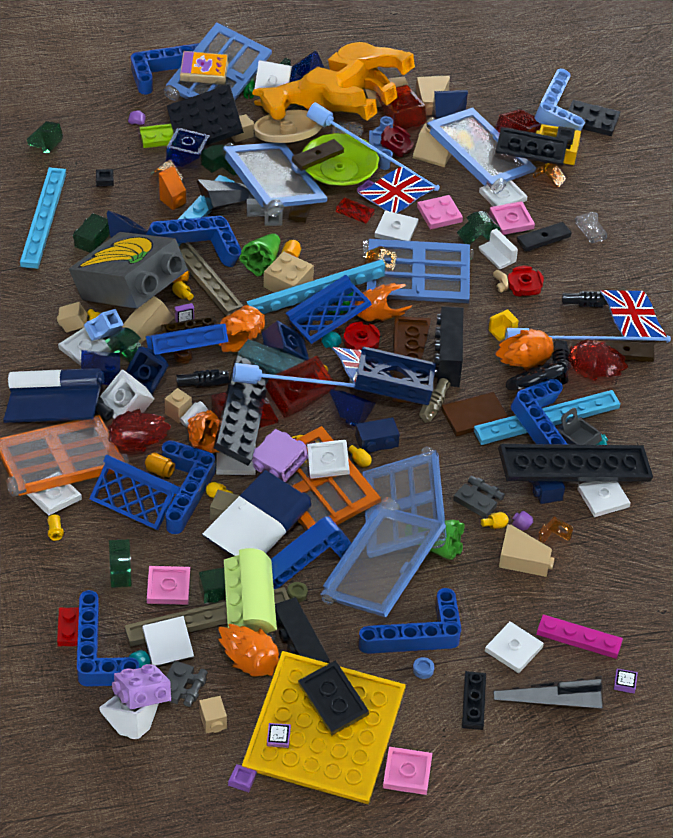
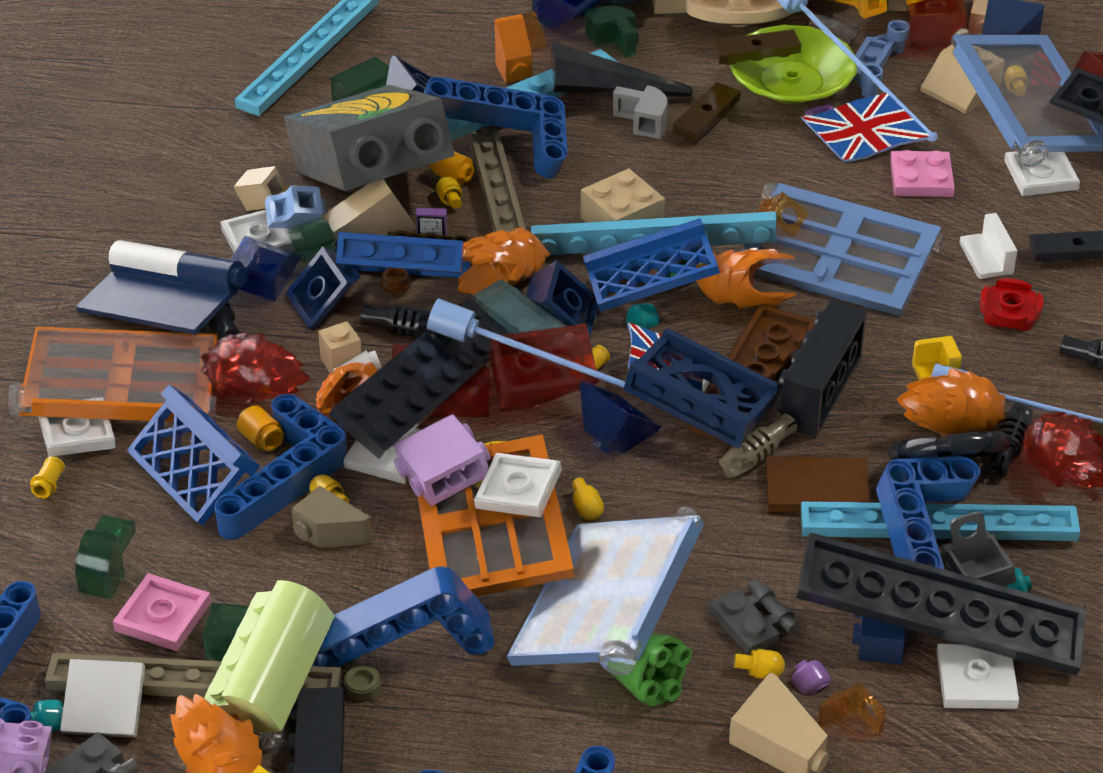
camera: 25 degrees right, 5 degrees down
(104, 177) = (428, 18): black plate -> none
(126, 395) = (275, 312): white slope -> none
(259, 516) = (360, 544): door -> none
(260, 253) = (593, 161): bright green cone -> none
(273, 176) = (673, 65): door -> none
(292, 247) = (652, 171): light orange brick -> none
(355, 210) = (785, 142): clear red tile -> none
(356, 329) = (705, 320): red plate -> none
(377, 435) = (631, 474): dark blue brick -> none
(381, 559) = (514, 666): clear door -> none
(396, 140) = (891, 53): dark red plate -> none
(396, 227) = (838, 178): white plate -> none
(479, 224) = (970, 200): clear green brick -> none
(503, 285) = (973, 293): tan arm -> none
(512, 218) = (1036, 207): bright pink plate -> none

